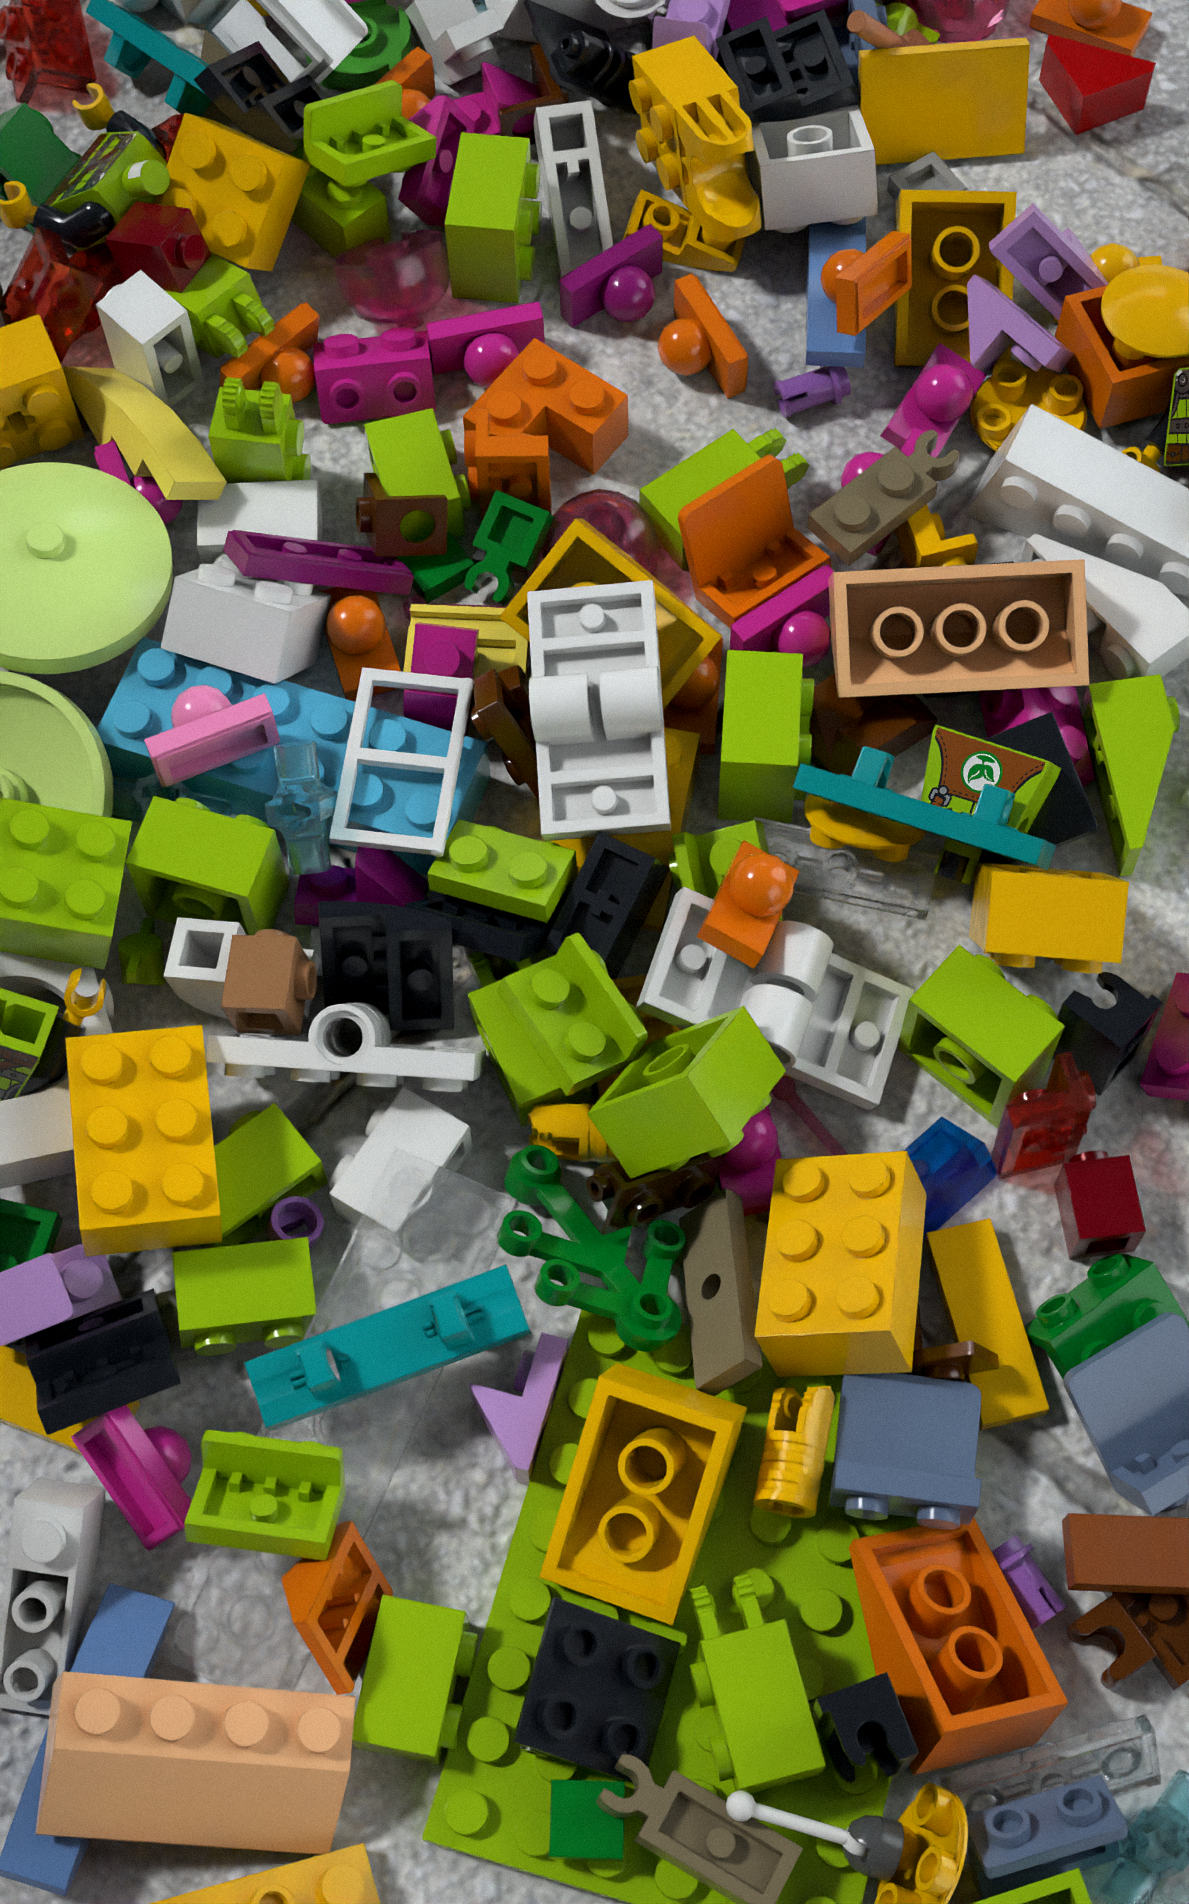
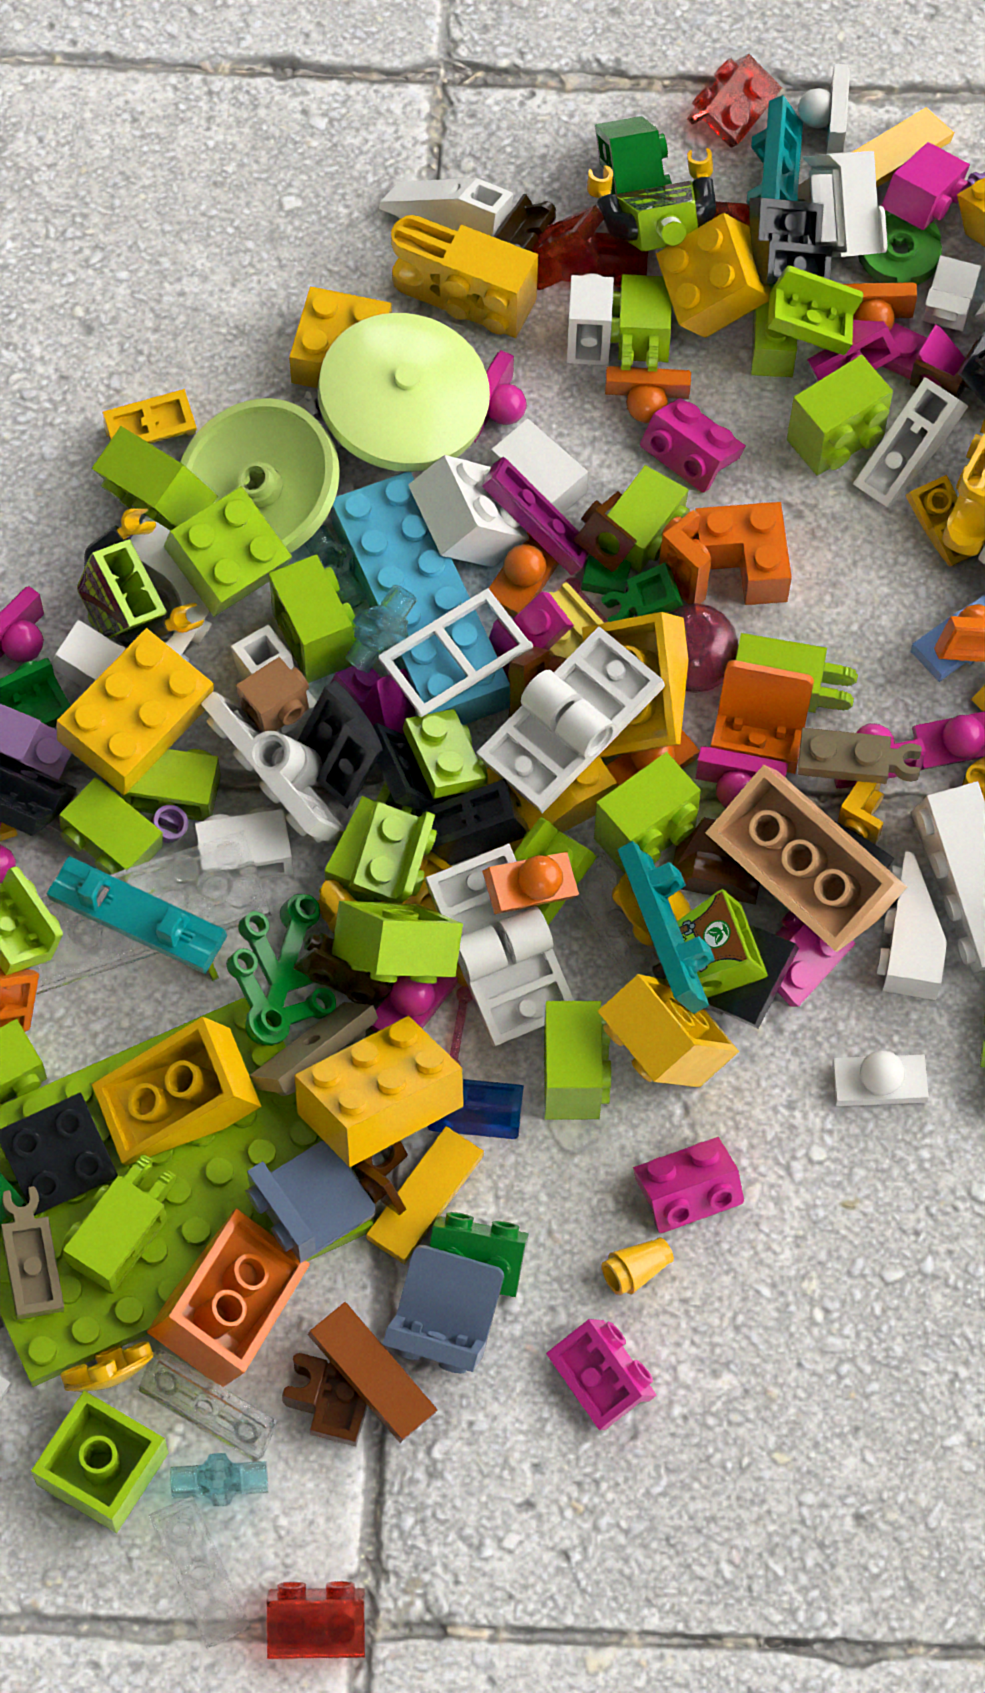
camera: 45 degrees right, 0 degrees up
(142, 957) = (243, 625): lime piece -> none
(145, 433) = (534, 364): light yellow slope -> none
(160, 243) = (643, 272): dark red brick -> none
(210, 733) = (377, 549): bright pink tile -> none
(257, 435) = (578, 423): lime hinge -> none
(396, 279) = (753, 400): clear pink cylinder -> none
(484, 341) = (766, 481): dark pink tile -> none
(521, 1421) = (163, 1013): lavender slope -> none
(615, 280) = (873, 511): magenta tile -> none
(702, 339) = (872, 584): orange tile -> none
(794, 1451) = (264, 1143): yellow hinge -> none
(812, 389) = (905, 669): medium lavender pin -> none
(865, 1720) = (148, 1281): black hinge -> none
(869, 1843) = (94, 1336): hinge -> none
(1027, 1582) = (300, 1317): medium lavender pin -> none
(1044, 1836) = (186, 1425): sand blue bracket -> none
(1045, 1124) = (550, 1133): clear red bracket -> none
(1099, 1205) = (539, 1197): dark red brick -> none
(1106, 1038) = (635, 1125): black hinge -> none
(1128, 742) = (827, 1014): lime slope -> none

